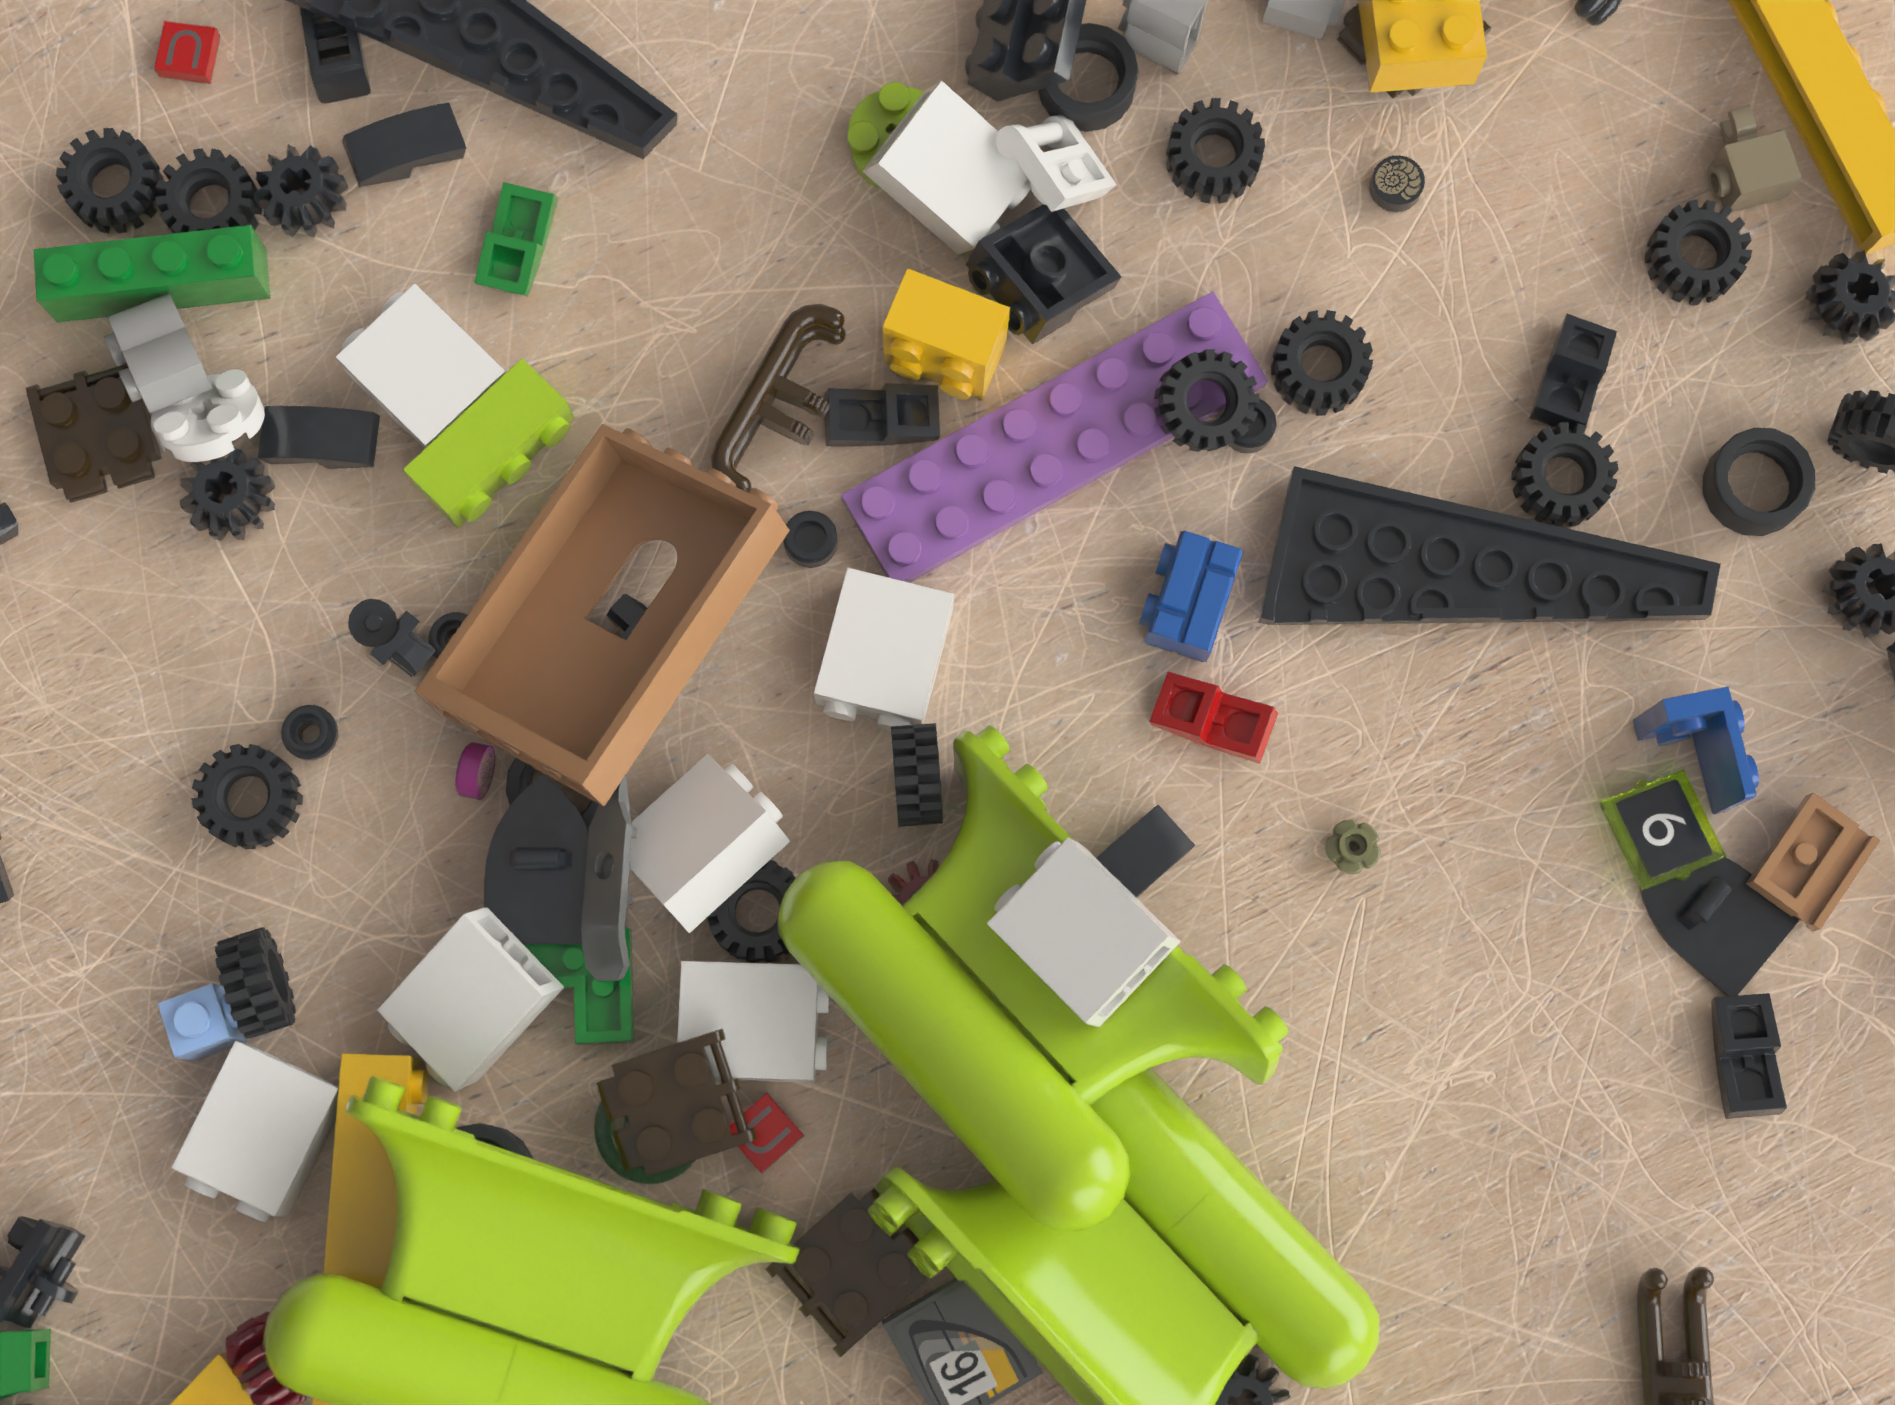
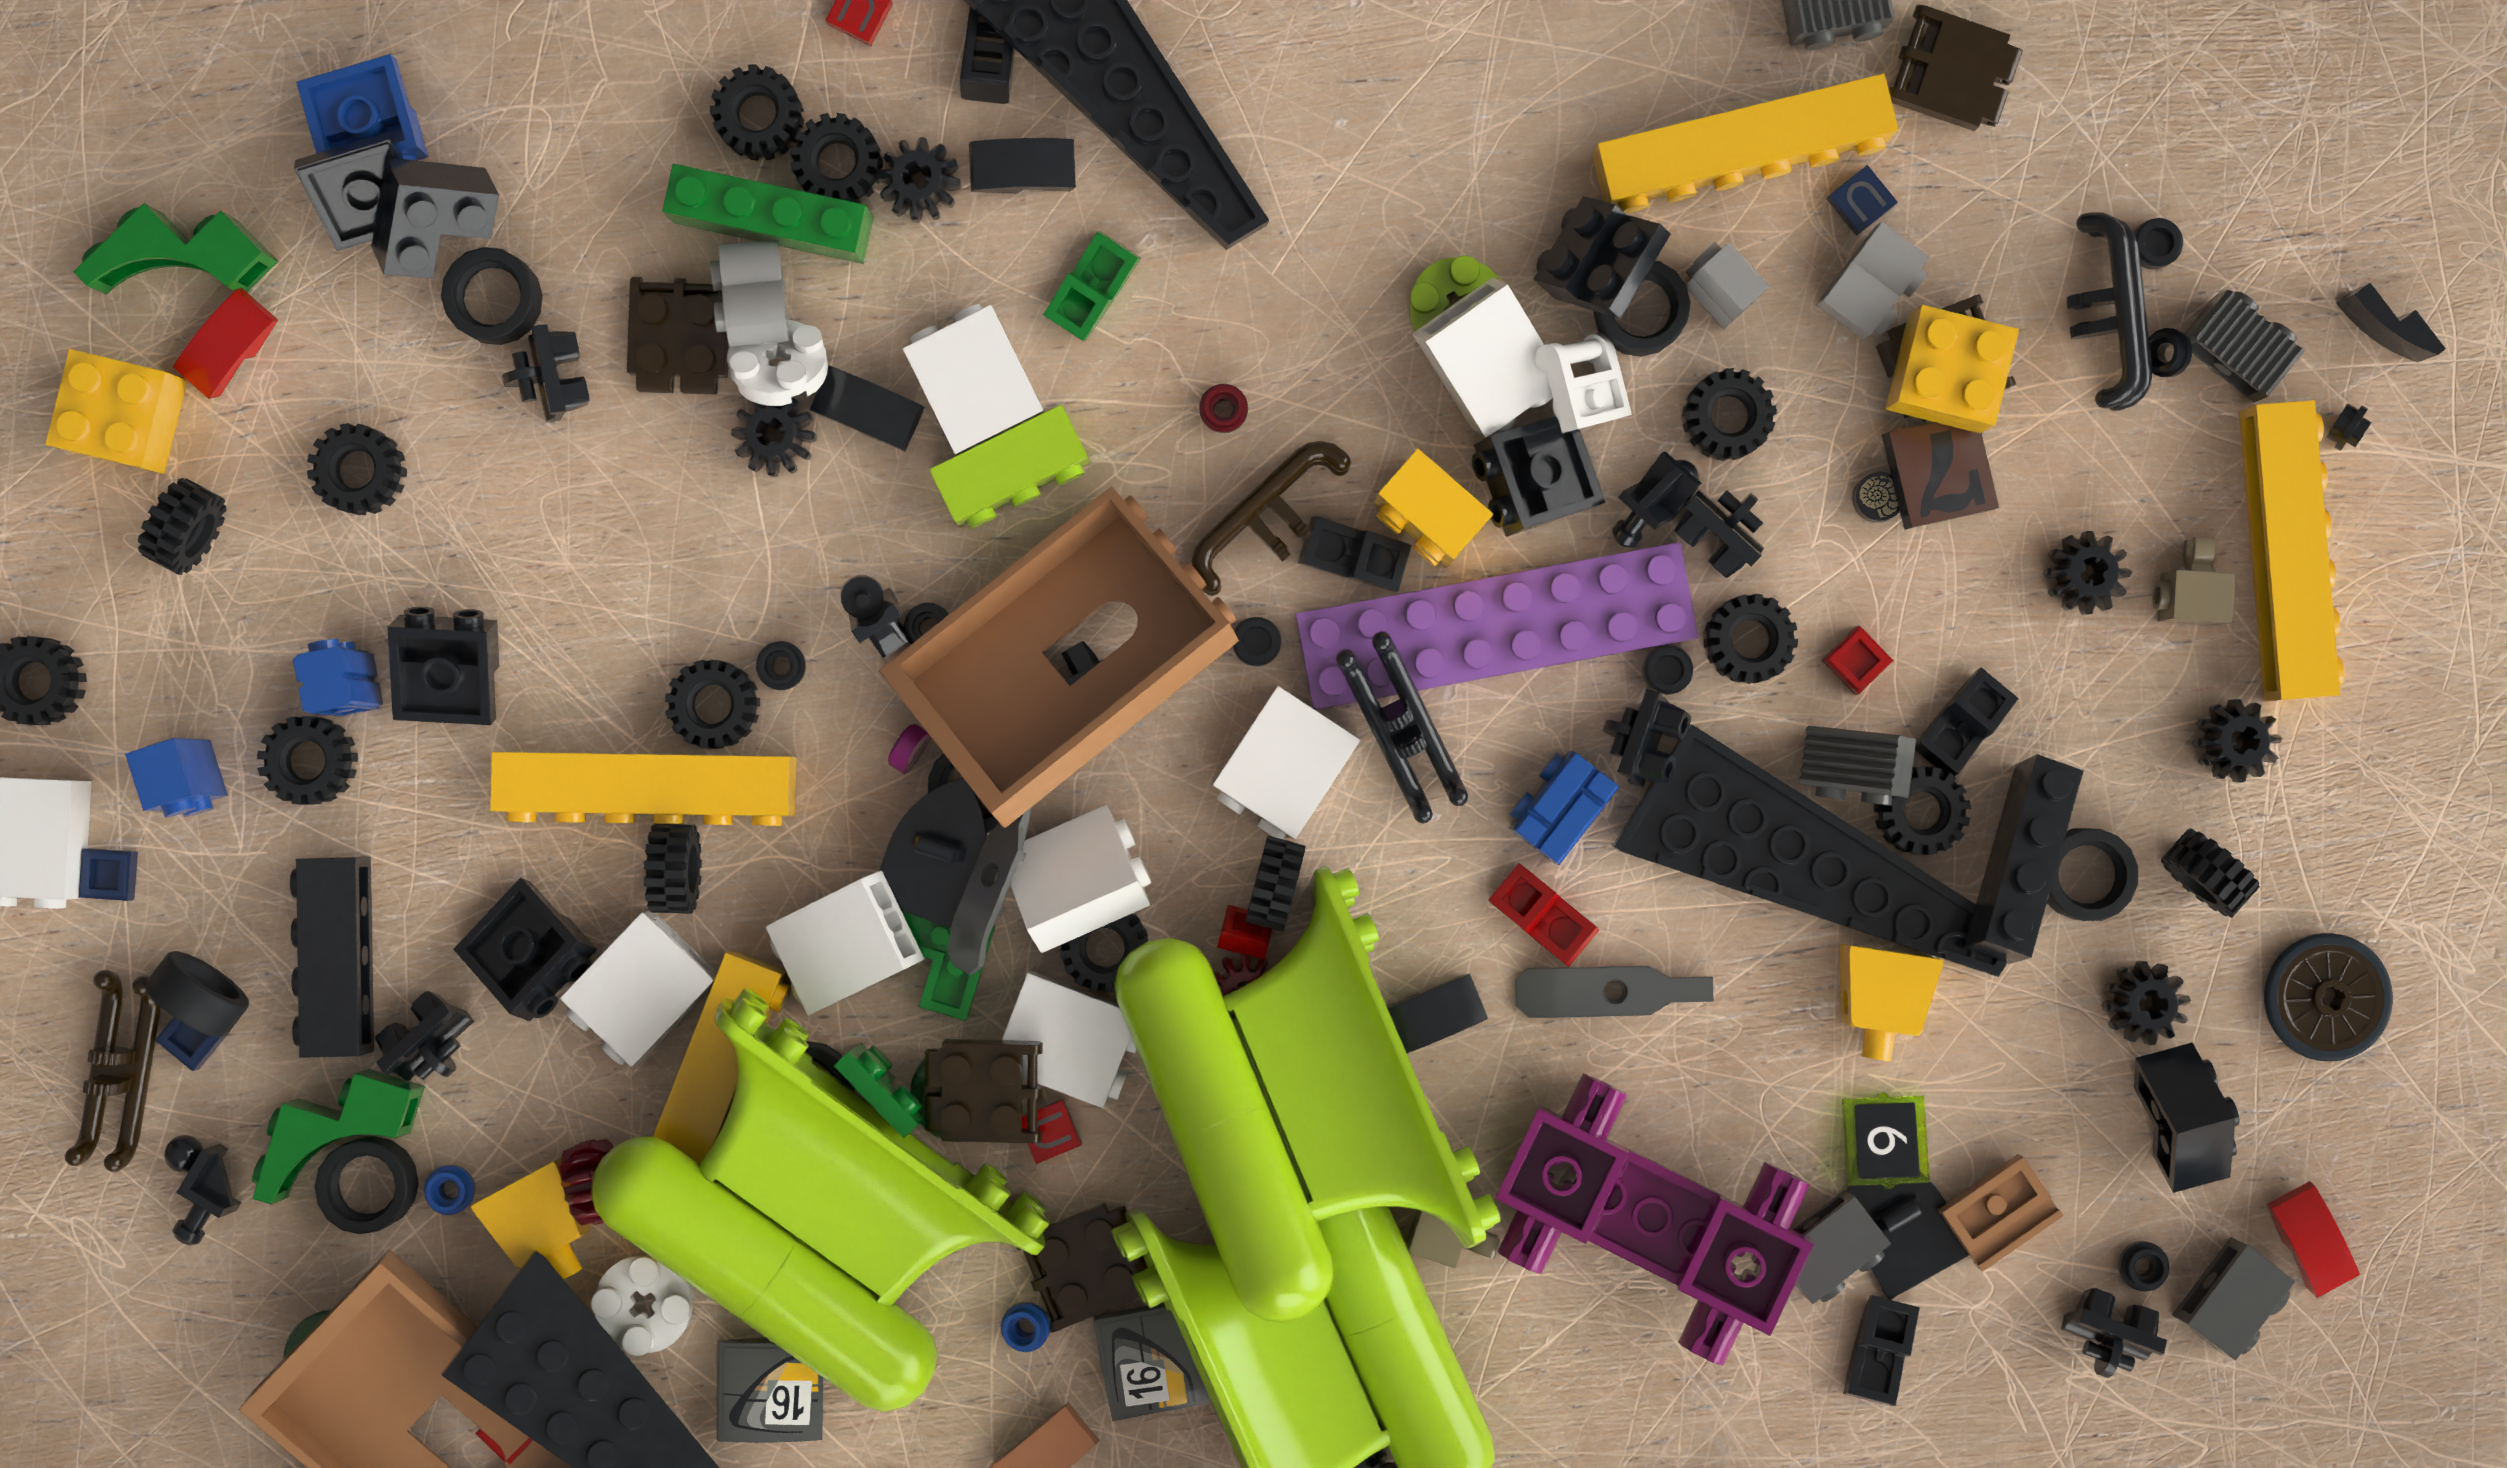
camera: 20 degrees right, 10 degrees up
(119, 1133) = (526, 951): none -> black plate
(195, 908) = (643, 785): none -> yellow brick
(199, 1023) = (616, 884): light blue brick -> none
(546, 1131) = (871, 1077): none -> green plate
(690, 301) = (1219, 393): none -> dark red plate
(798, 1373) = (1015, 1336): none -> blue plate
(902, 843) = (1243, 936): none -> red tile
(991, 567) = (1402, 727): none -> black piece
(1082, 931) = (1360, 1081): white brick -> none
(1173, 251) = (1656, 498): none -> black piece
(1231, 1098) = (1437, 1242): none -> dark tan brick
(1237, 391) = (1643, 673): black tyre -> none
(1244, 497) = (1640, 735): none -> black hips
(1273, 275) = (1738, 544): none -> black hips
(1283, 781) = (1582, 991): none -> dark grey piece
(1338, 846) = (1617, 1052): olive plate -> none
(1438, 350) = (1857, 660): none -> red tile
(1448, 137) = (1939, 473): none -> reddish brown tile
(1454, 990) = (1655, 1219): none -> magenta piece
(1480, 443) = (1857, 762): none -> dark grey brick
(1601, 673) = (1885, 994): none -> yellow torso
(1645, 167) = (2073, 561): none -> black gear
(1650, 961) = (1843, 1242): none -> dark grey brick
(1689, 483) = (2023, 859): none -> black brick
(1716, 733) = (1961, 1080): blue bracket -> none
(1718, 232) = (2146, 647): black tyre -> none

